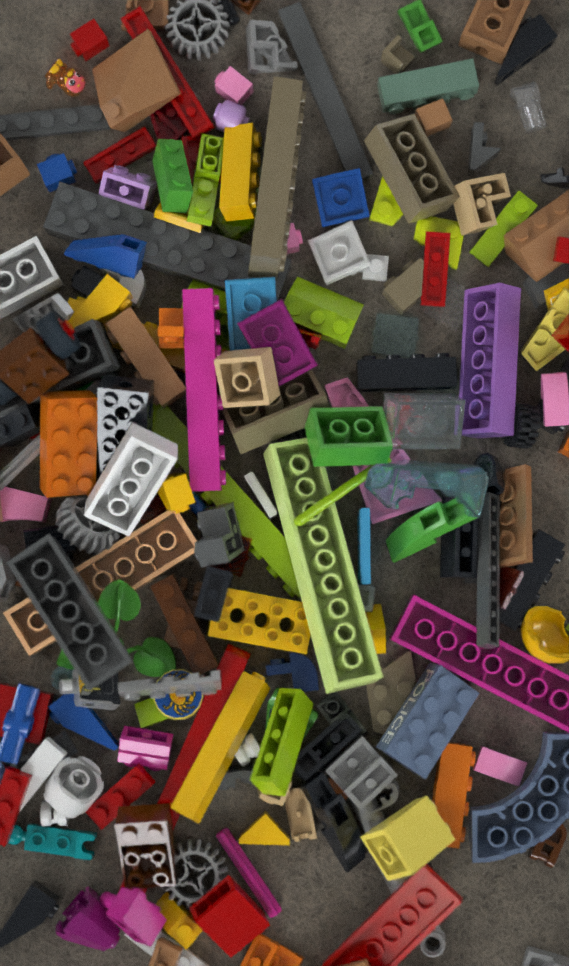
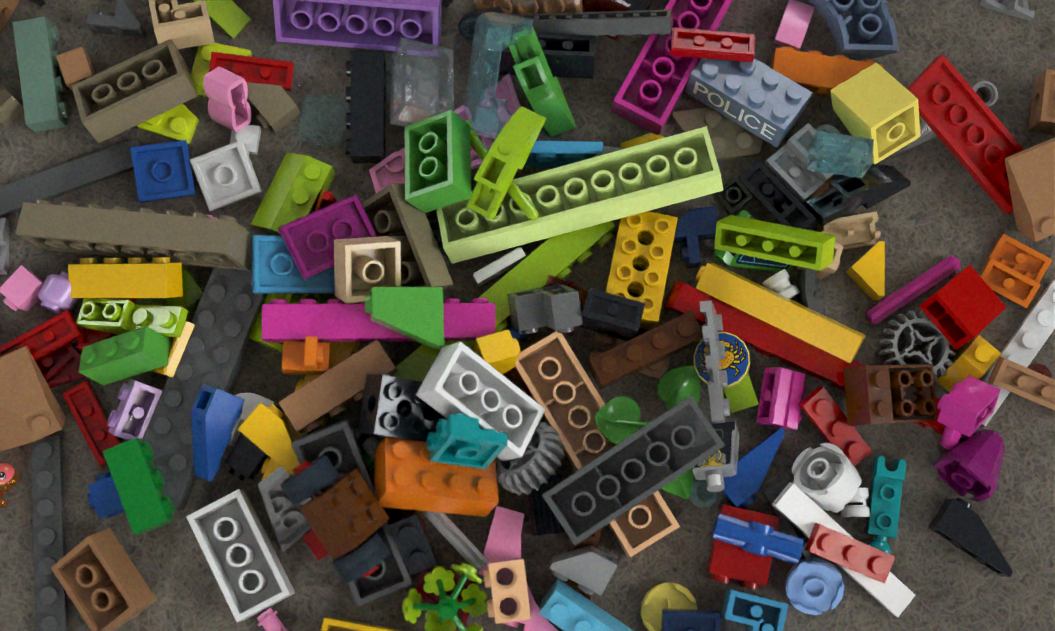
camera: 90 degrees left, 5 degrees down
(58, 195) = (139, 485): none -> green brick
(92, 461) = (463, 443): none -> teal plate
(206, 414) = (409, 311): none -> bright green slope
(348, 495) = (503, 159): none -> lime slope
(363, 802) = (840, 154): none -> clear light blue brick
(406, 249) = (227, 99): none -> bright pink brick
(468, 685) = (712, 44): none -> red tile

